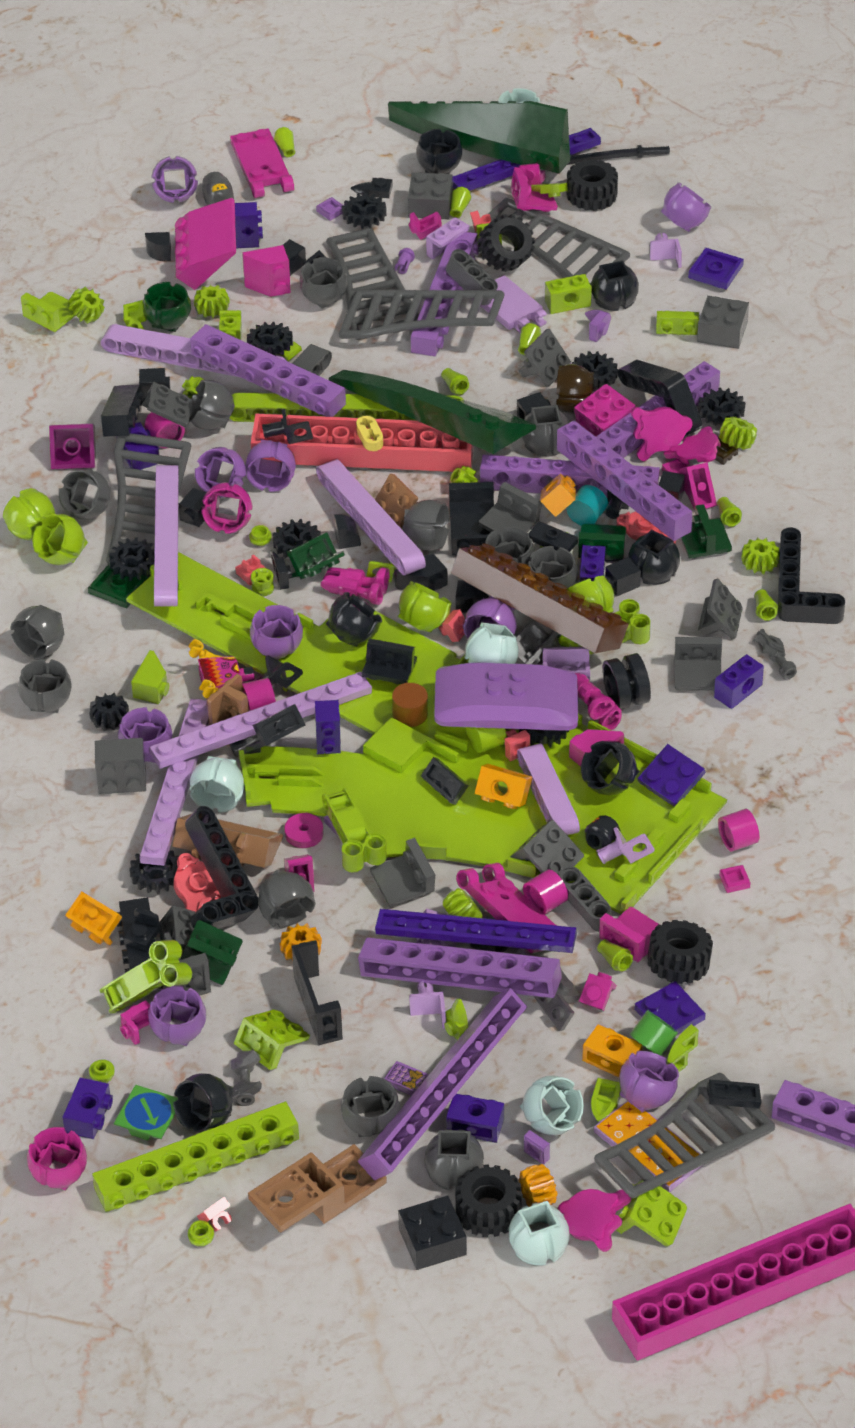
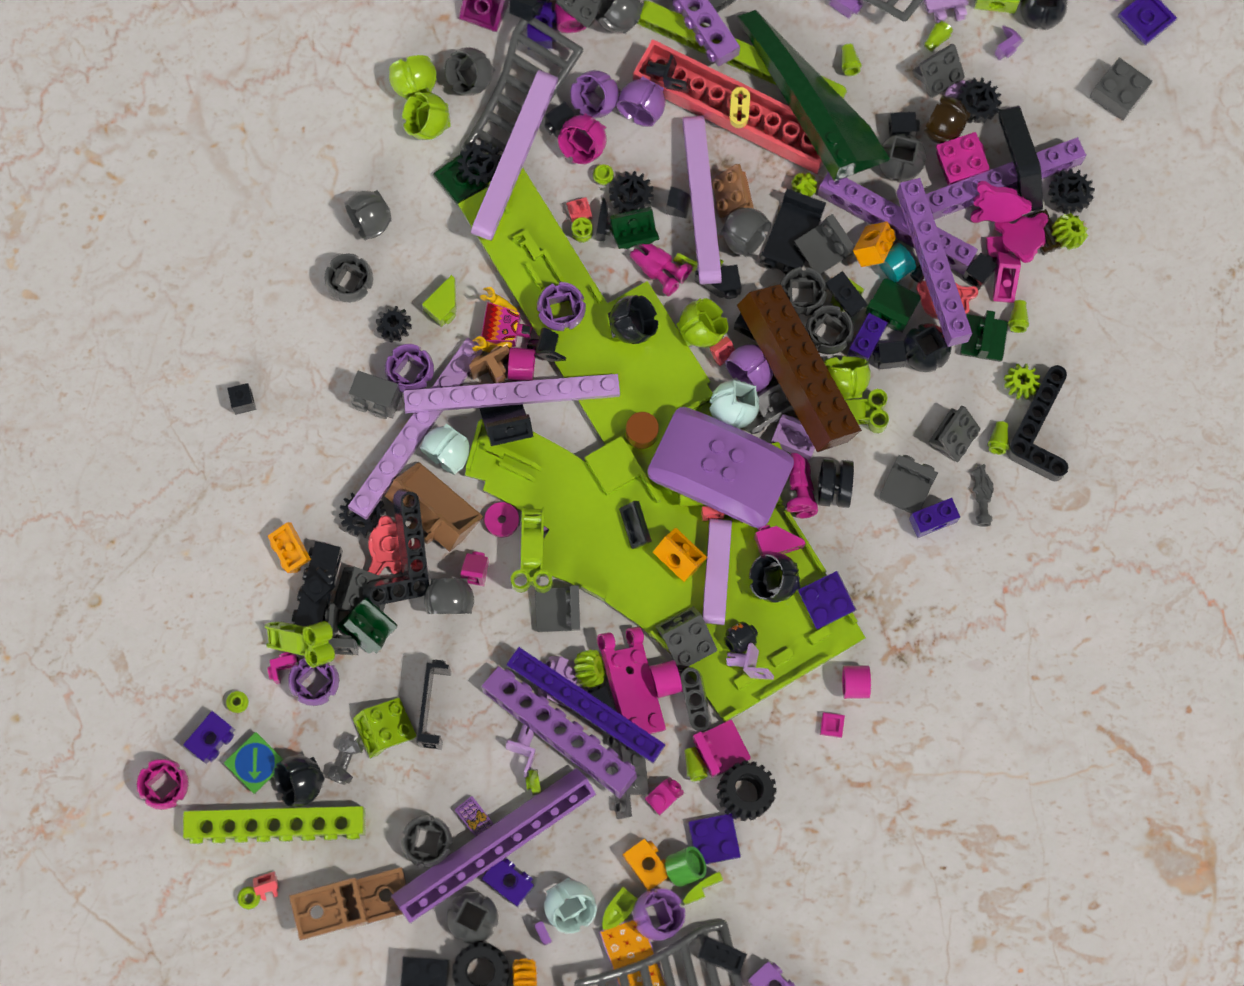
camera: 20 degrees right, 30 degrees up
(296, 936) = (454, 644): light orange gear -> none
(327, 727) = (559, 432): dark purple brick -> none
(389, 661) = (643, 378): black bracket -> none
(677, 322) = (1082, 69): lime bracket -> none

